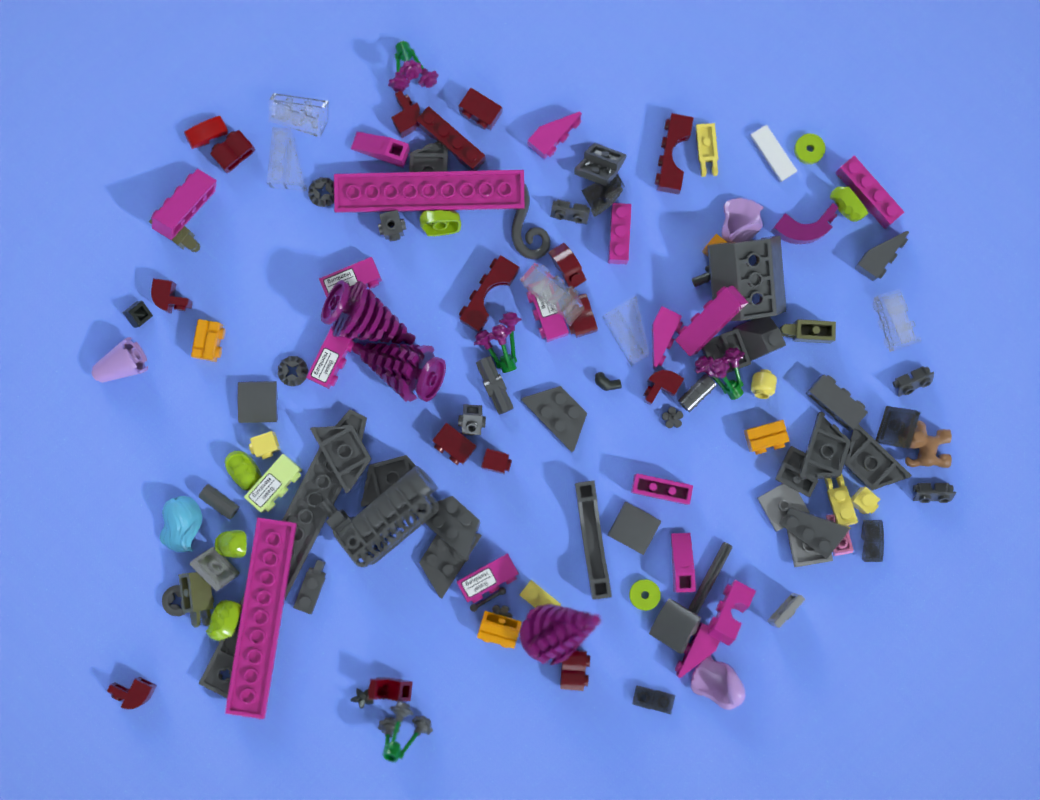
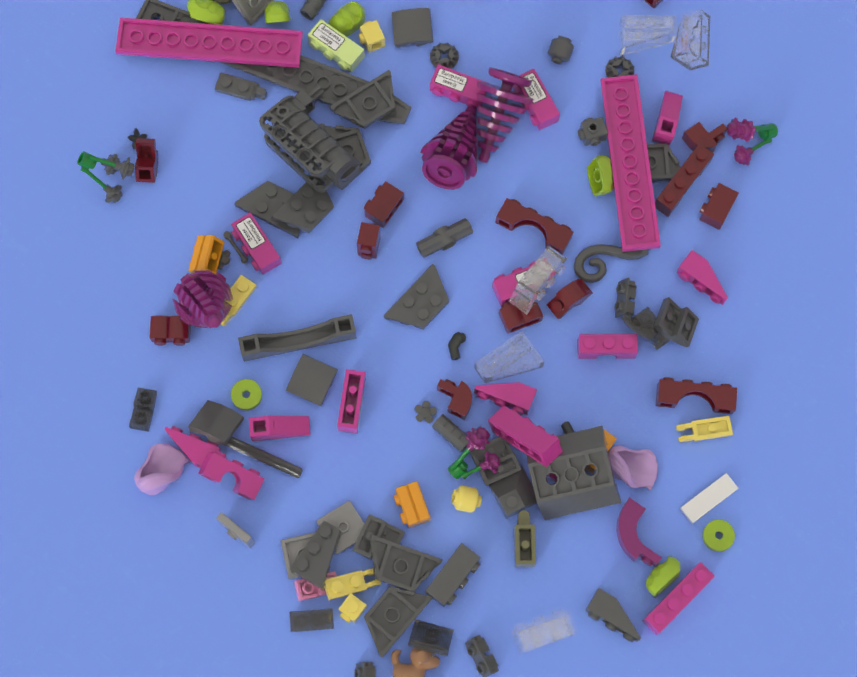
camera: 85 degrees right, 10 degrees down
(297, 249) = (560, 49): none -> dark grey head
(472, 420) = (408, 217): dark grey brick -> none
(499, 333) = (489, 229): magenta plant -> none

